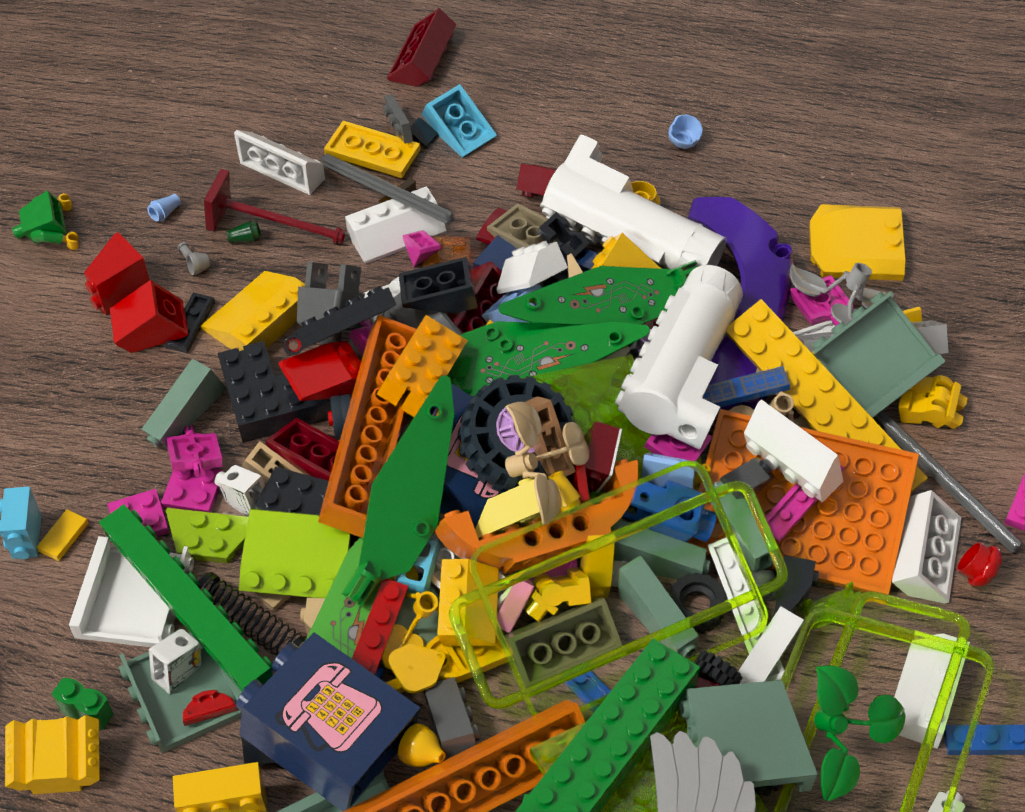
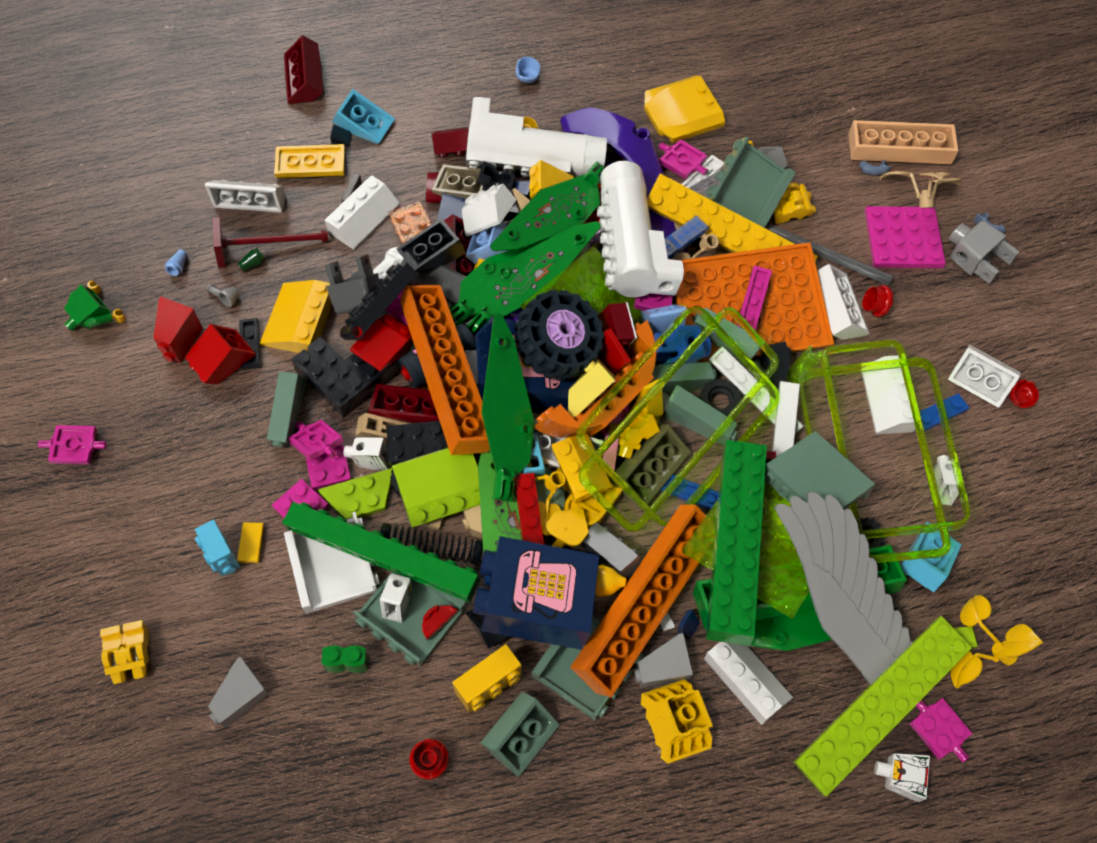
camera: 30 degrees left, 10 degrees up
(52, 754) = (348, 706): yellow slope -> none
(388, 189) = (345, 187): dark grey axle -> none
(397, 118) = (318, 131): dark grey plate -> none
(420, 246) = (390, 221): dark pink slope -> none
(421, 364) = (459, 312): light orange piece -> none
(523, 463) = (584, 352): tan plant -> none
(550, 438) = (585, 328): medium nougat slope -> none
(568, 493) = (615, 364): yellow cone -> none
(717, 670) = (773, 441): black tyre -> none
(754, 473) = (718, 300): black slope -> none
(793, 452) = (738, 272): white slope -> none
(834, 692) = (870, 425): green plant -> none
(856, 279) = (707, 141): light grey plant -> none

